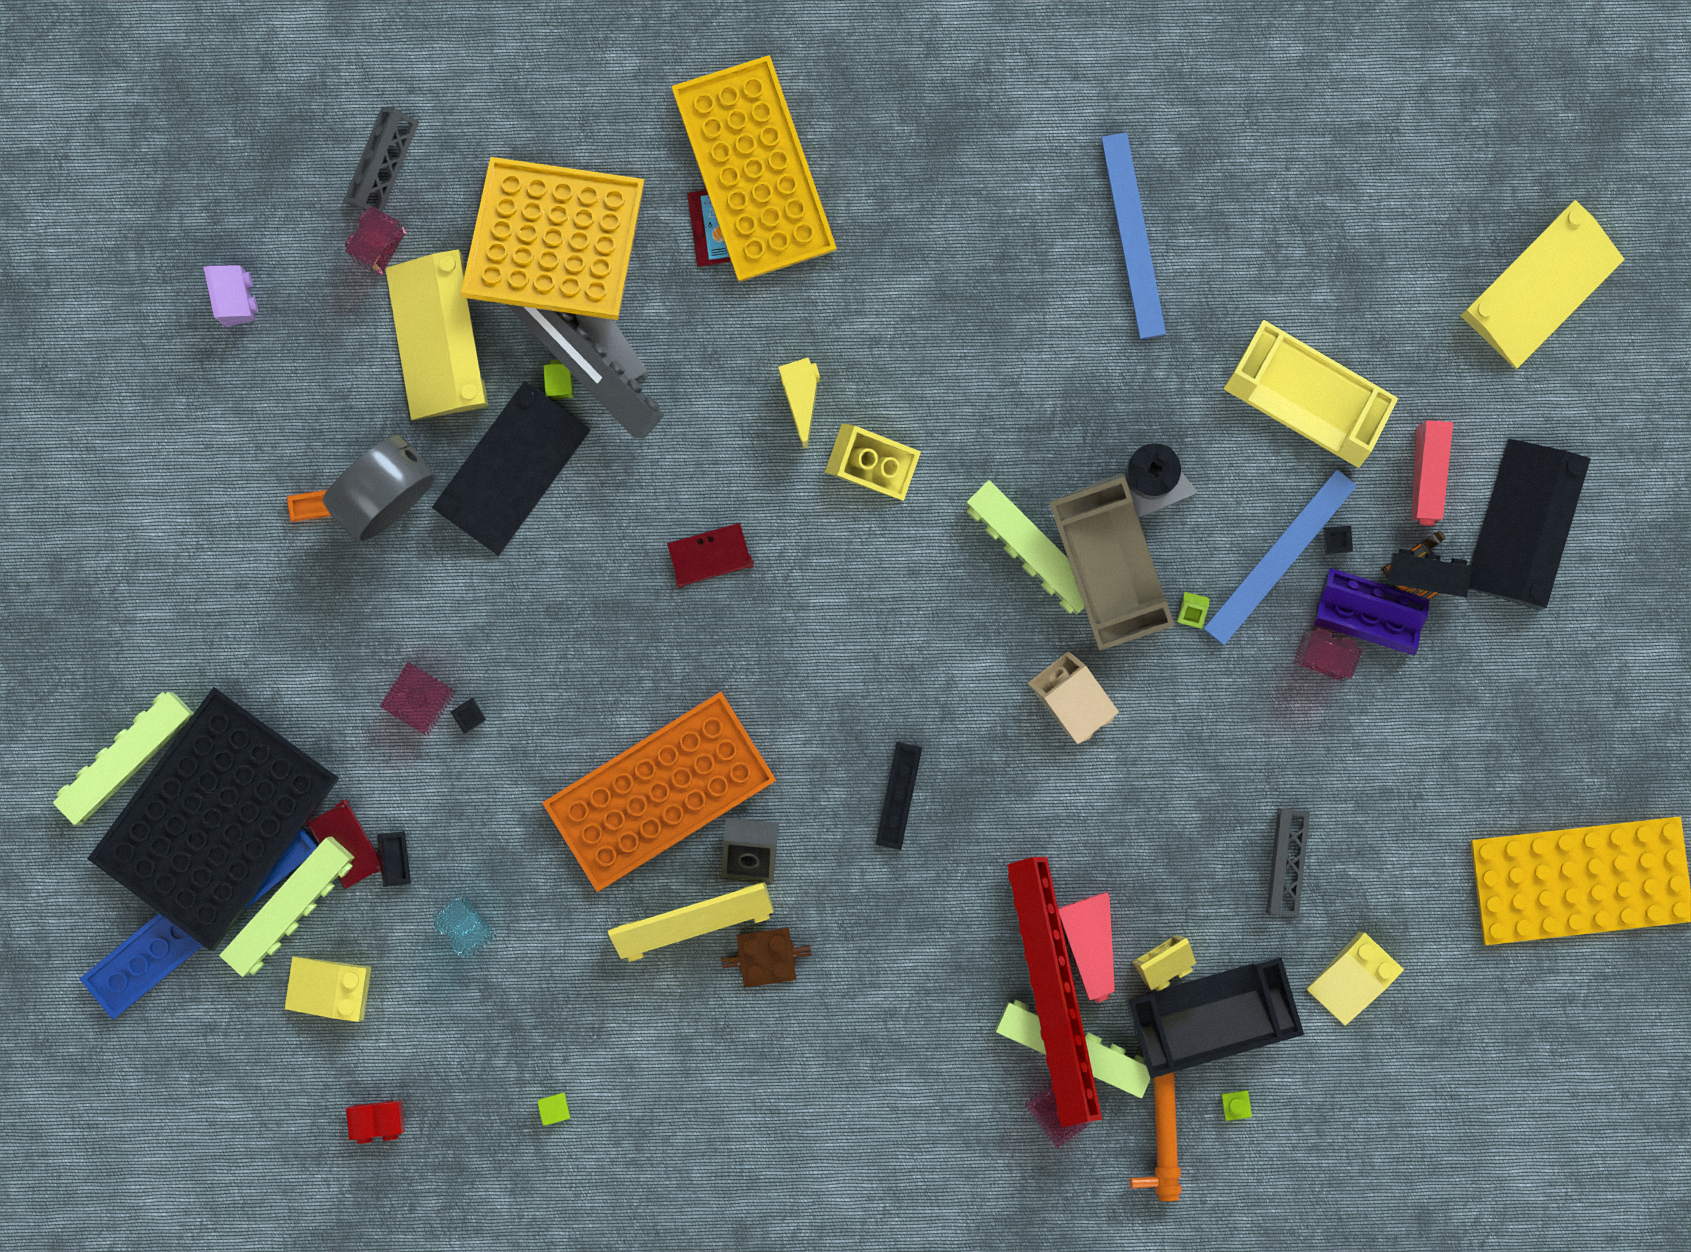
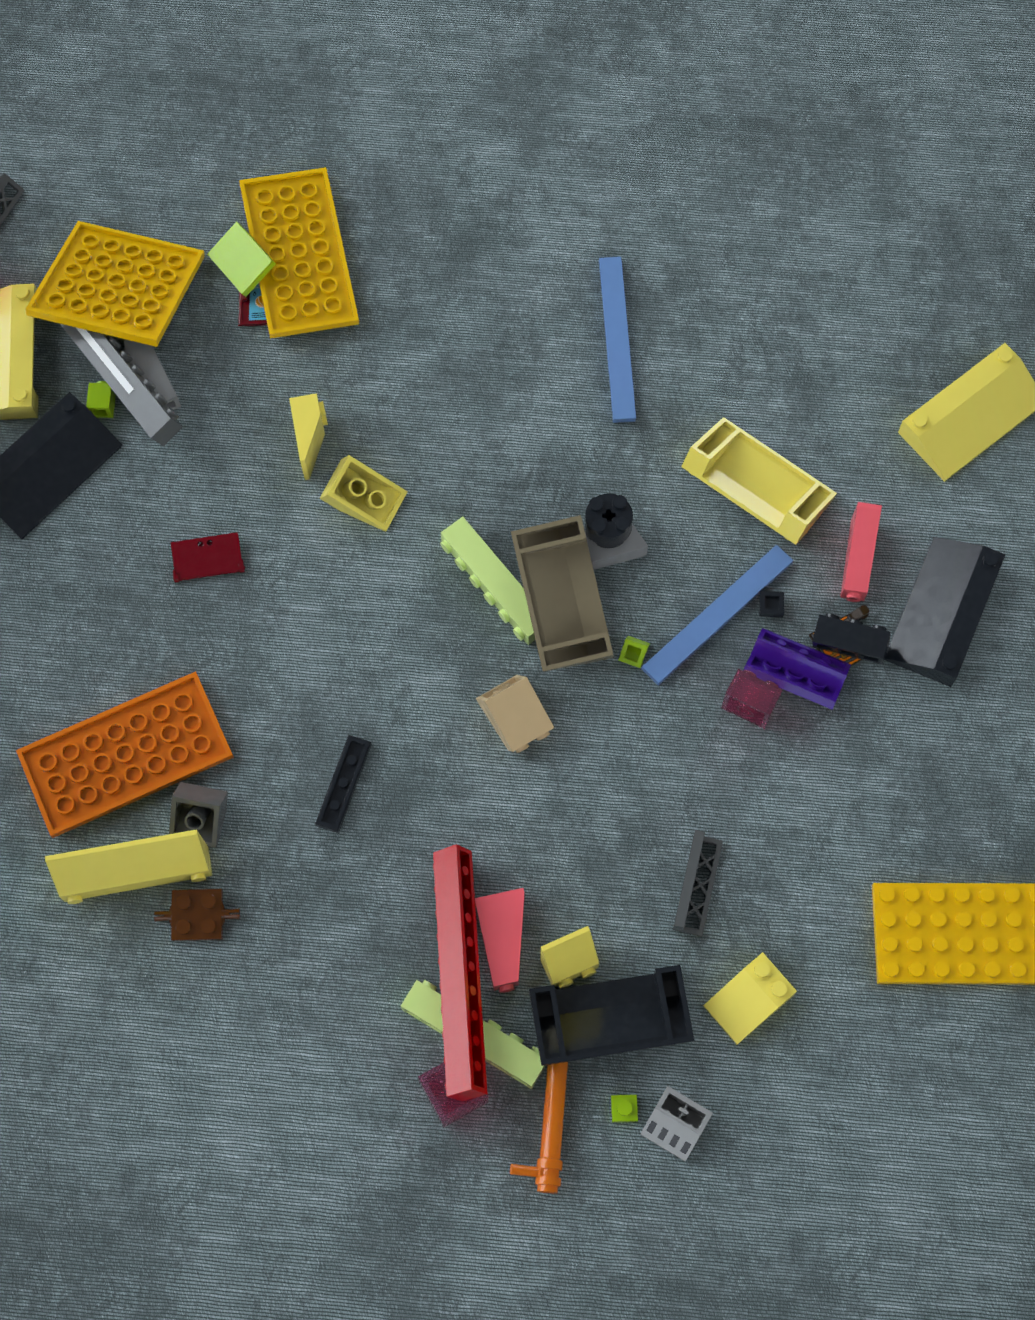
camera: 10 degrees right, 15 degrees down
(690, 188) = (241, 259): none -> lime tile
(1292, 1116) = (676, 1123): none -> light grey slope

